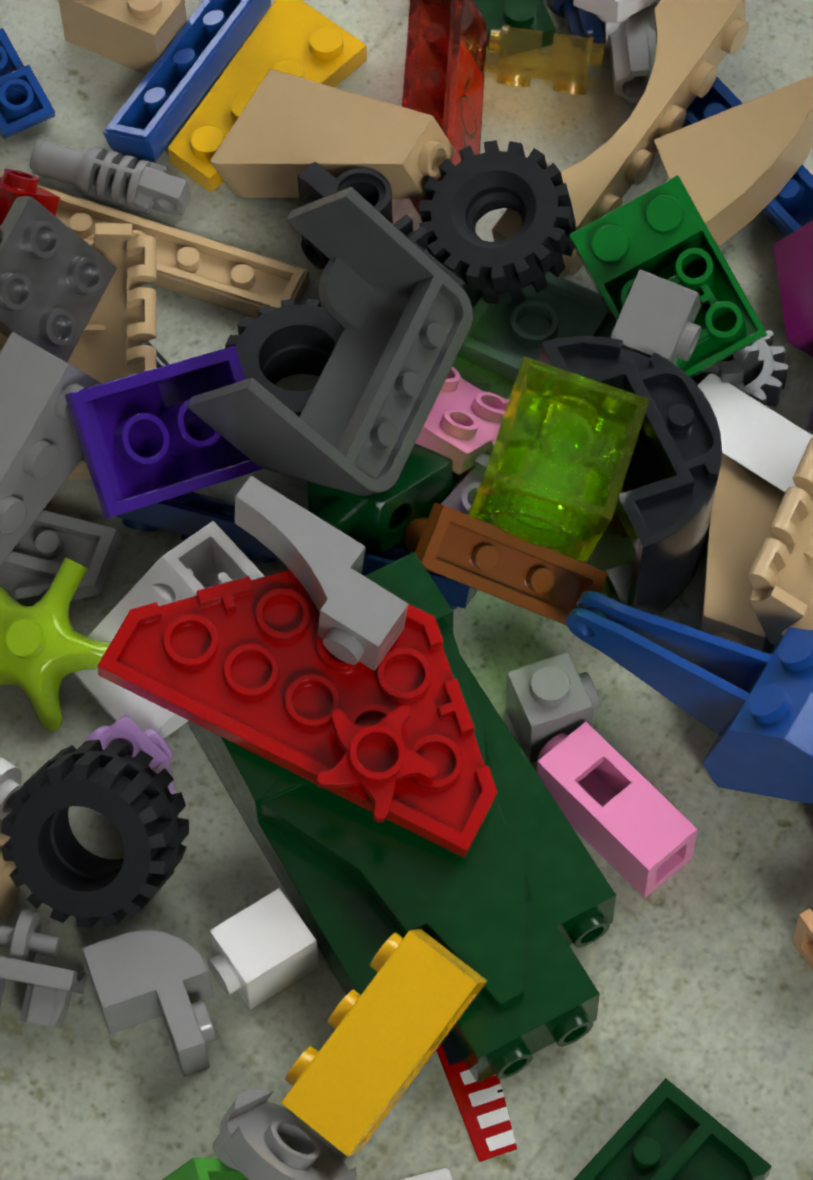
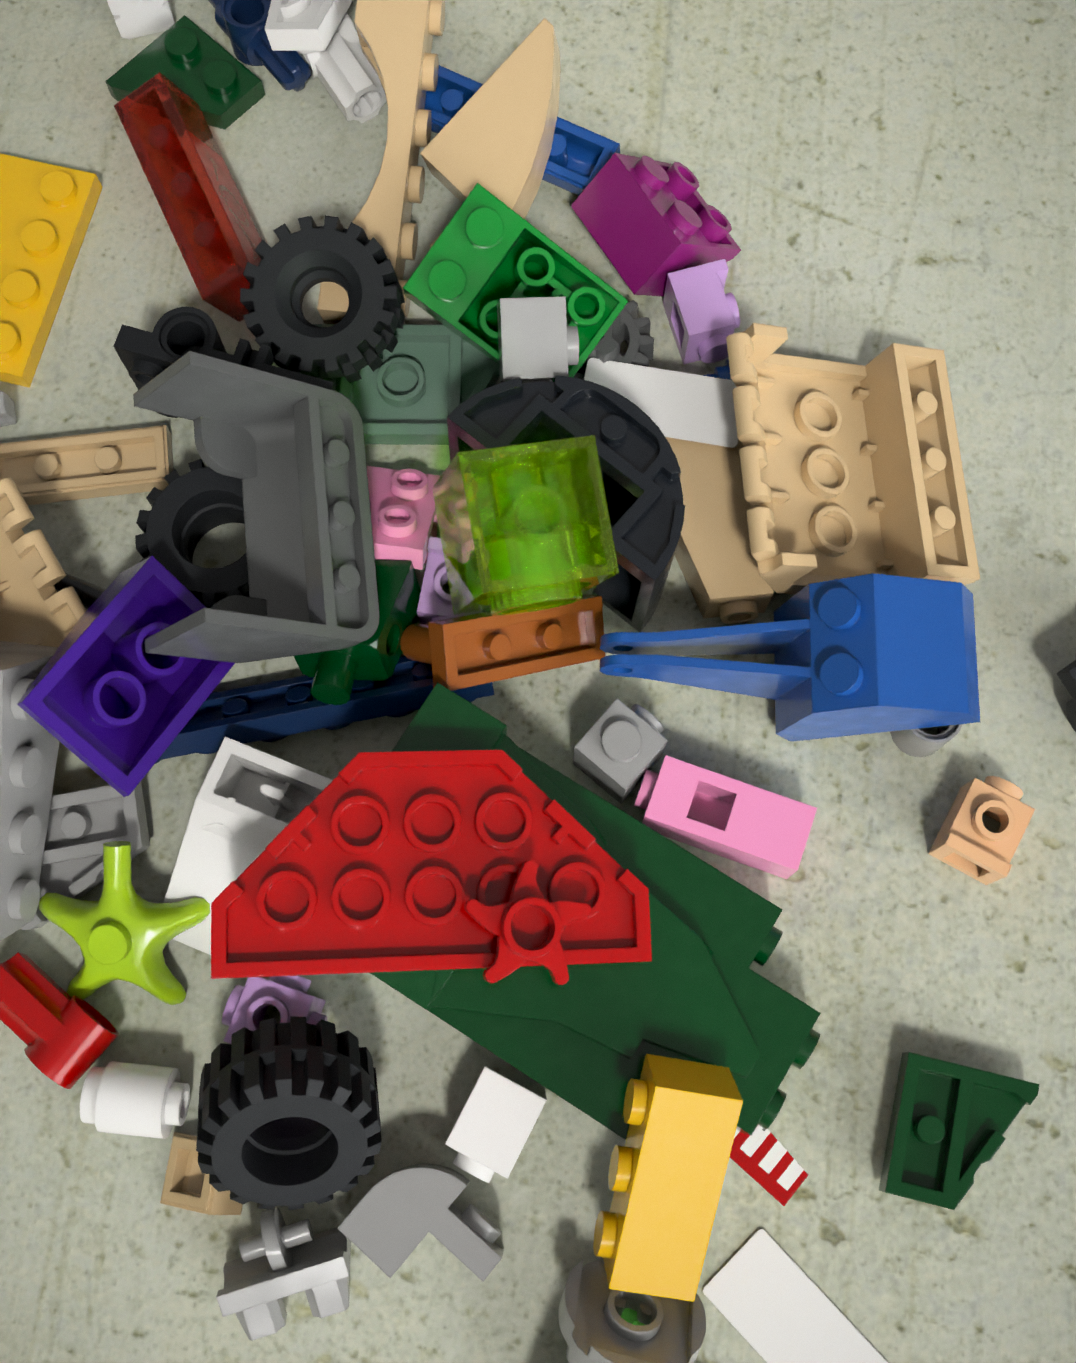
camera: 30 degrees left, 15 degrees up
(307, 122) = (87, 287): tan slope -> none
(356, 614) = (435, 798): light grey slope -> none
(566, 65) = (291, 114): clear yellow hinge -> none

